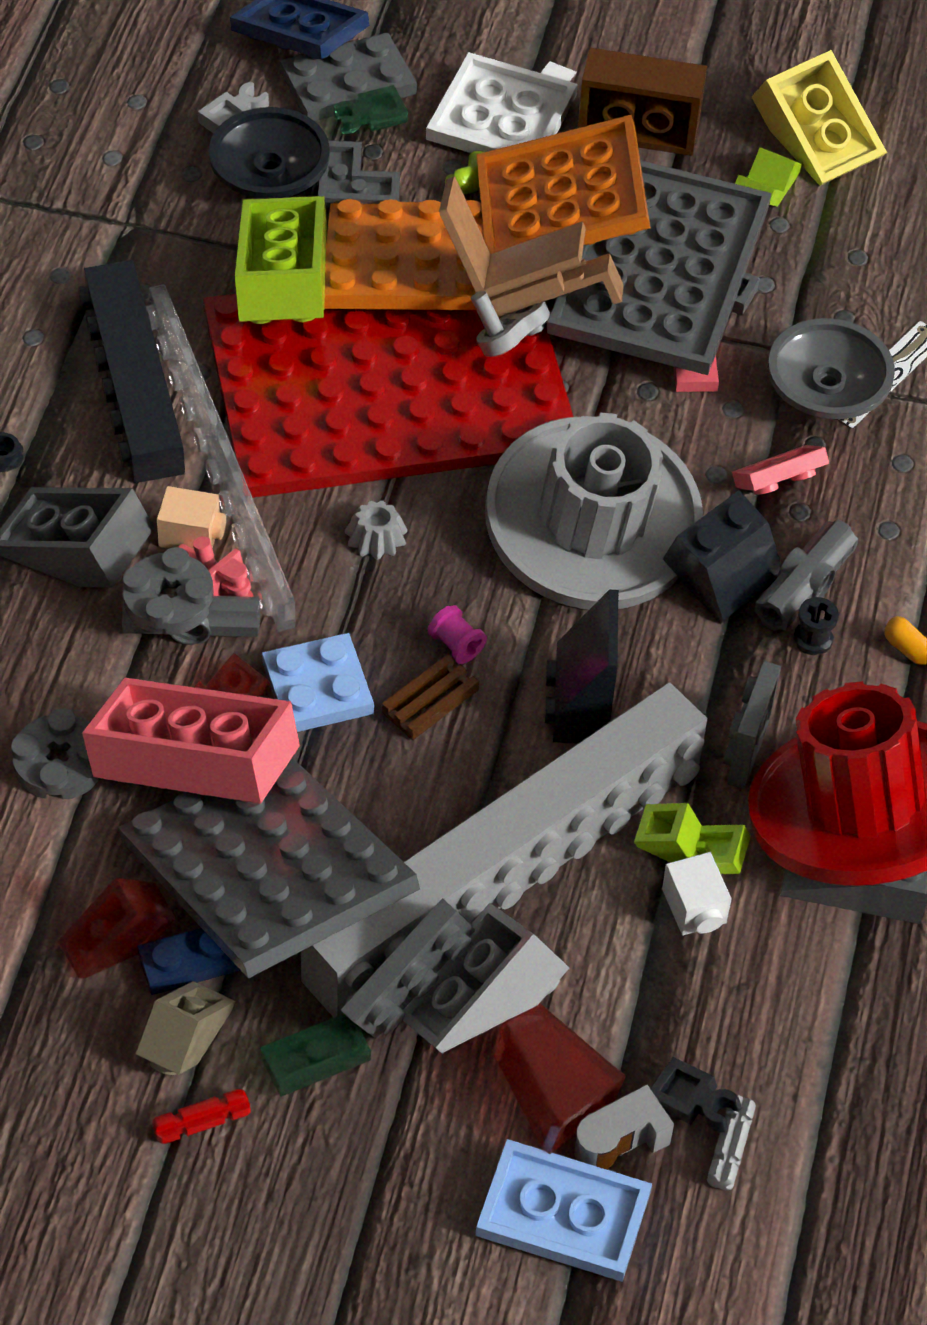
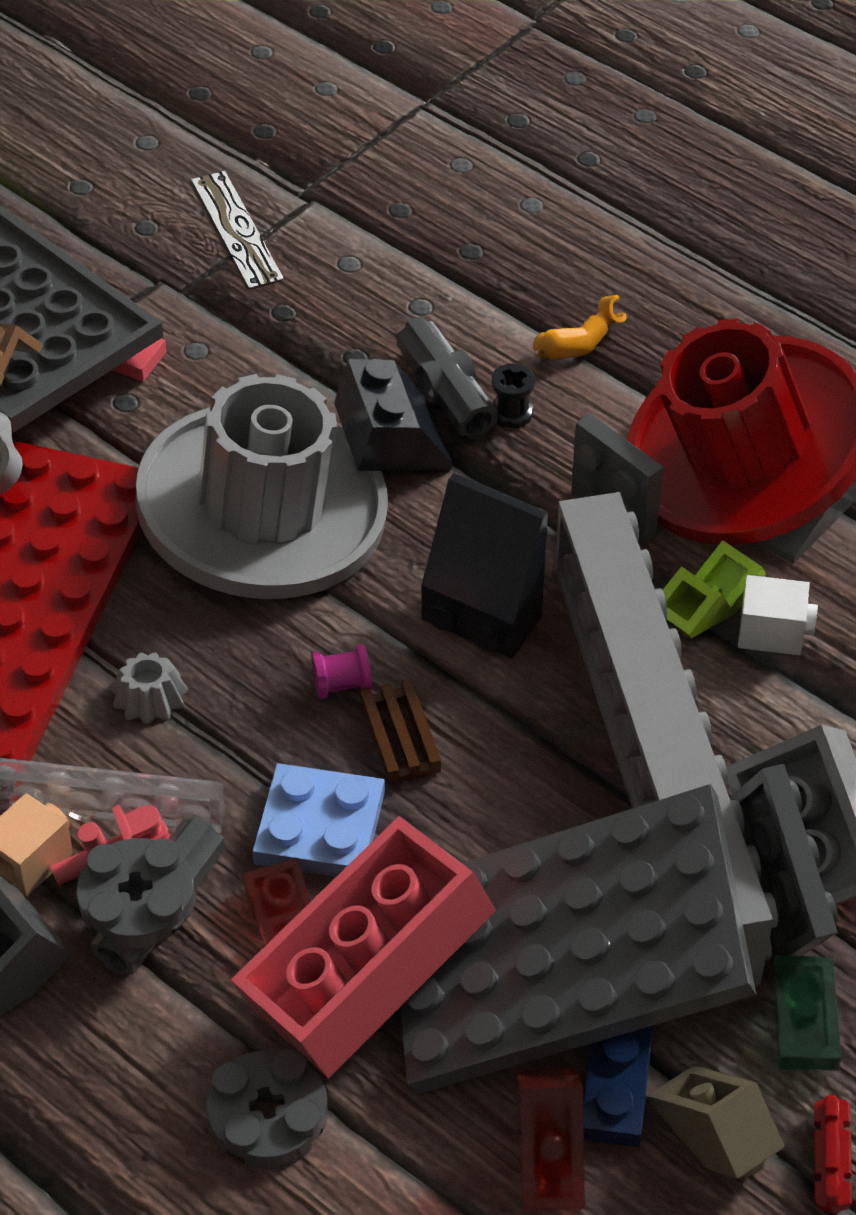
camera: 60 degrees left, 5 degrees down
(793, 464) = (307, 339): coral plate -> none
(831, 368) = (224, 248): dark grey dish -> none

